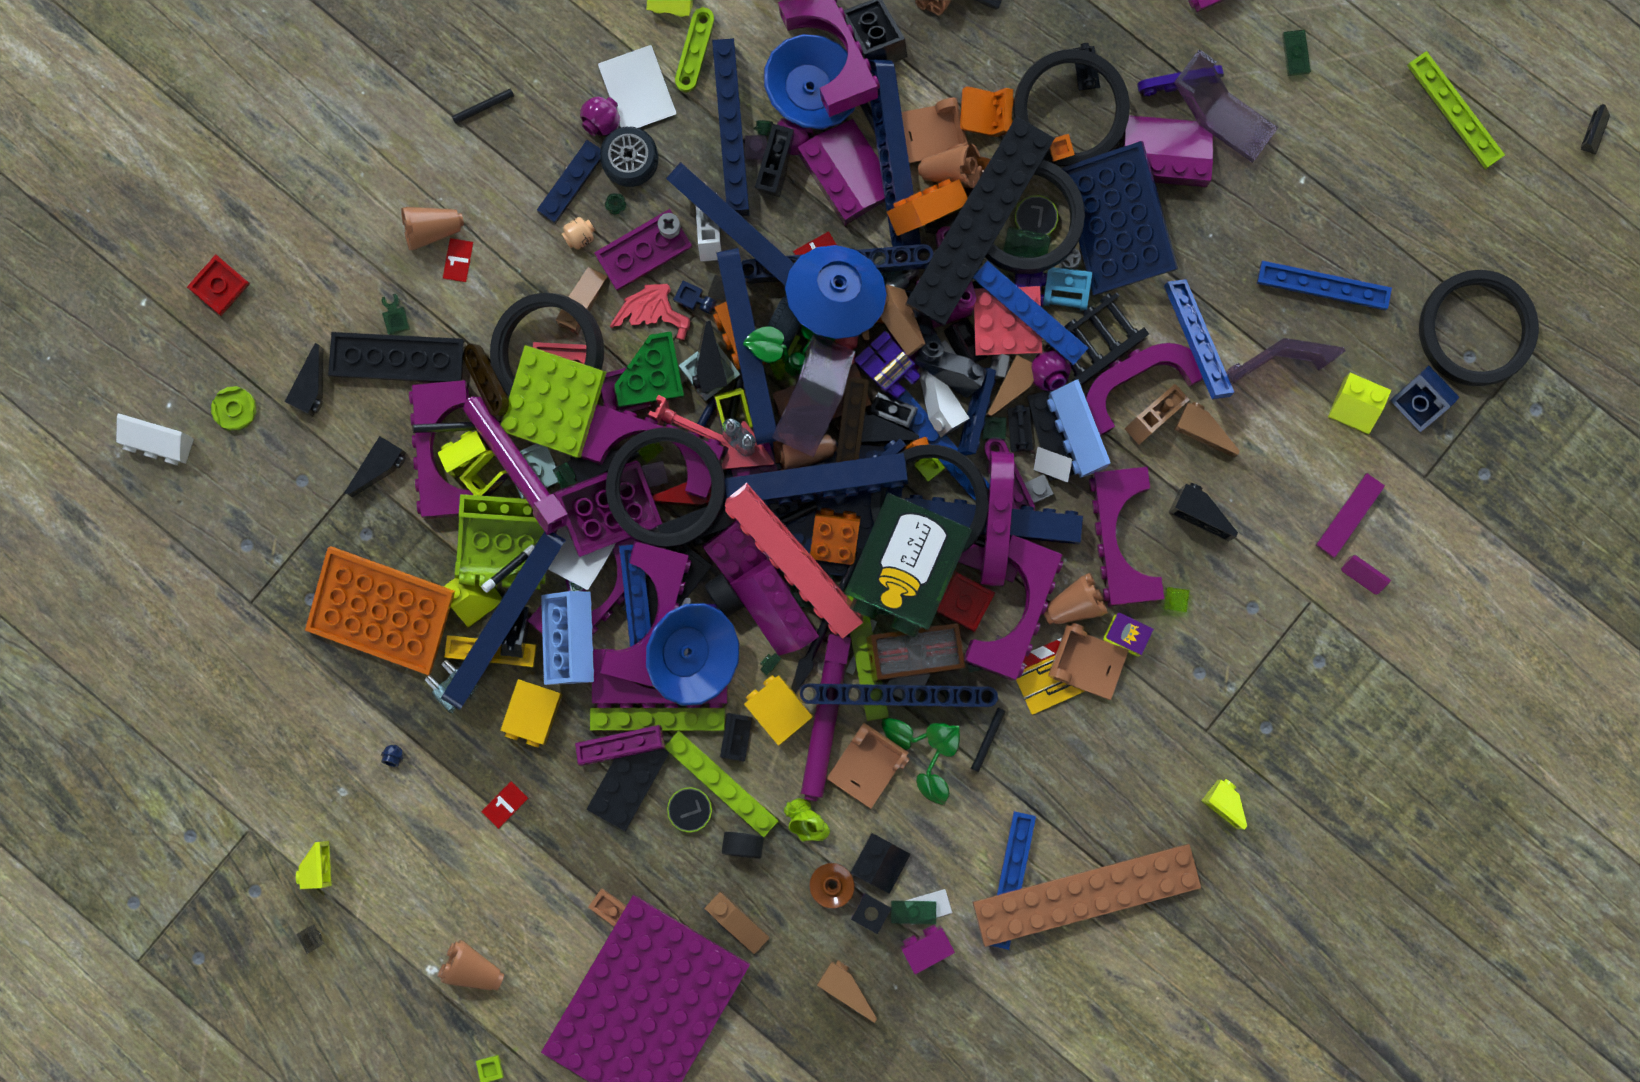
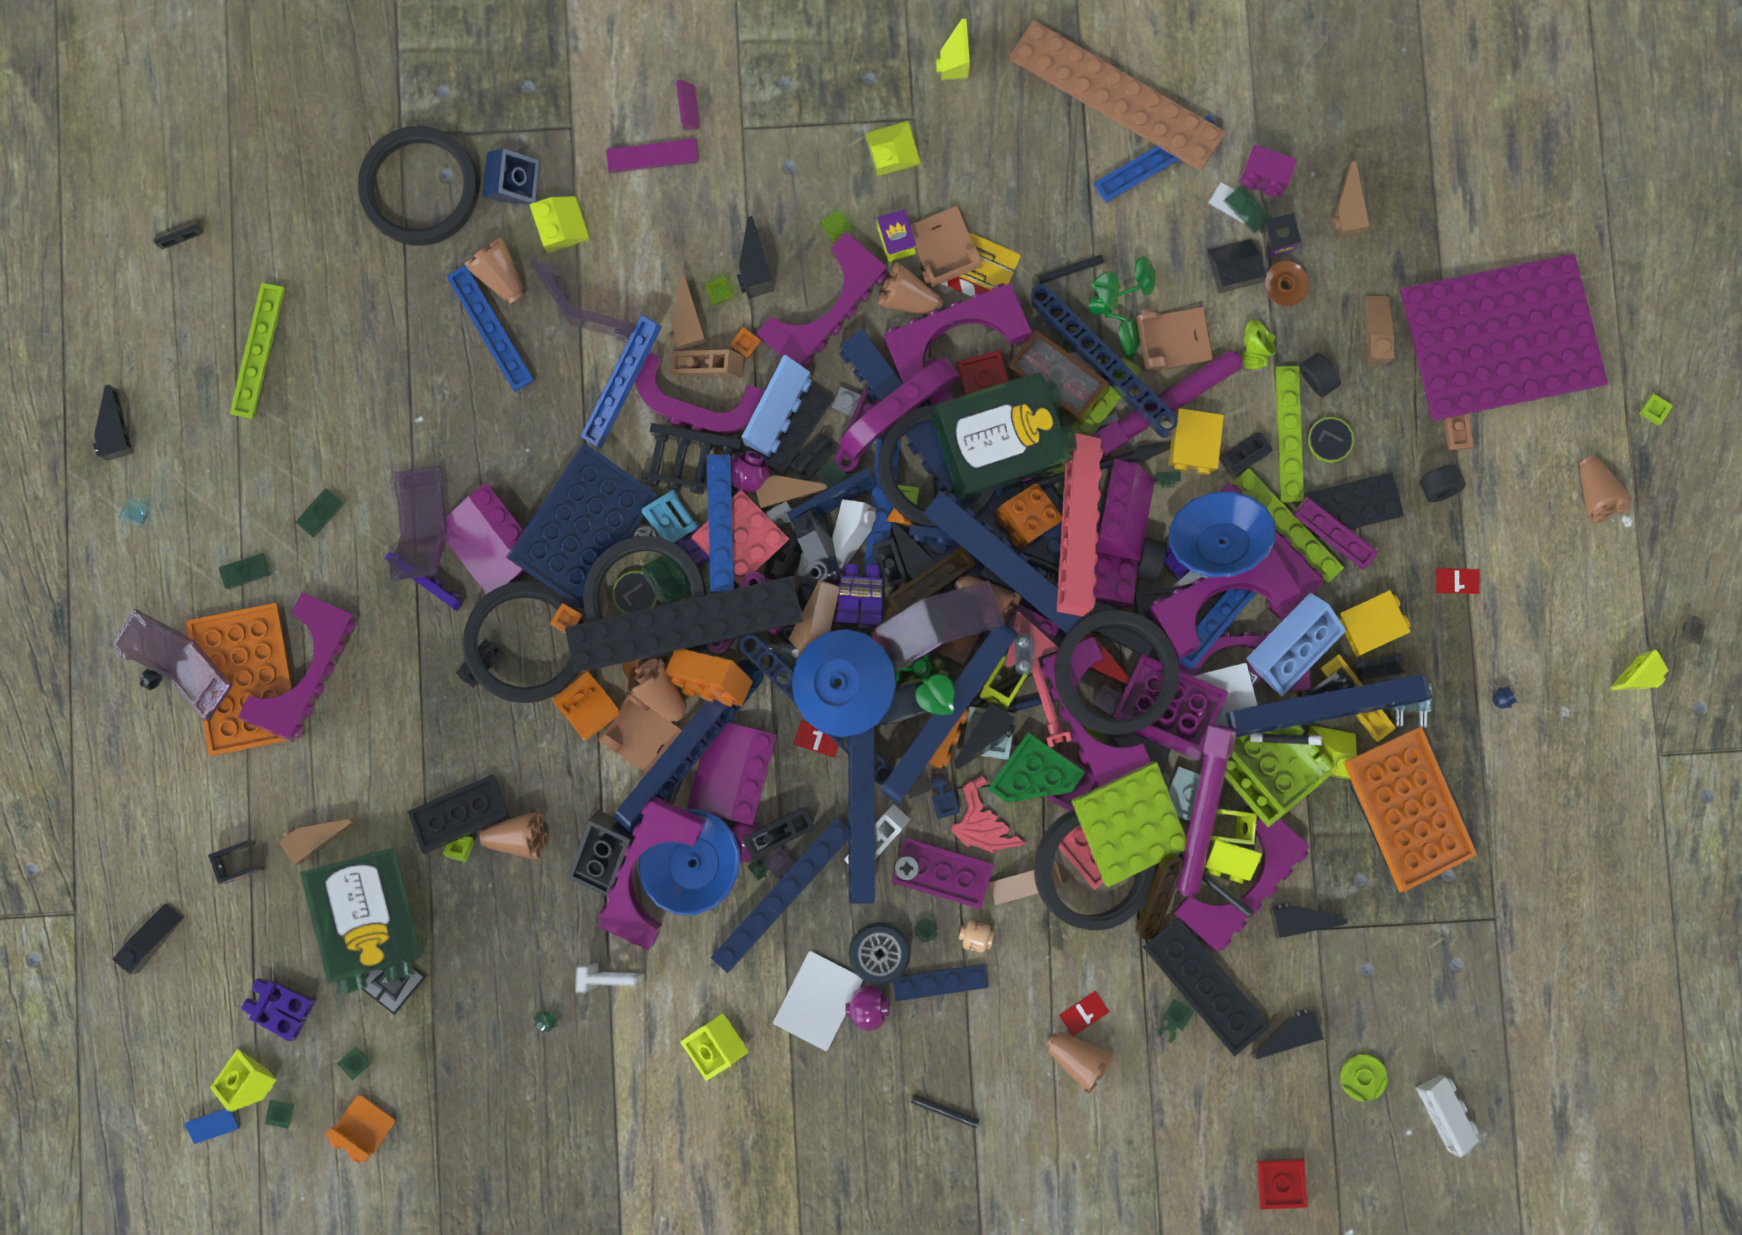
camera: 130 degrees left, 0 degrees up
(497, 685) = (1370, 667): none -> black hinge
(564, 475) = (1175, 764): clear green plate -> none
(582, 857) = (1442, 483): none -> black tyre
(694, 49) = (745, 983): lime plate -> none
(1052, 464) = (819, 405): white sticker -> none
(1147, 455) = (745, 343): none -> orange plate
(1197, 694) = (892, 148): none -> neon yellow slope
(1203, 471) = (718, 291): none -> clear neon green plate
(1362, 326) = (497, 271): none -> nougat cone

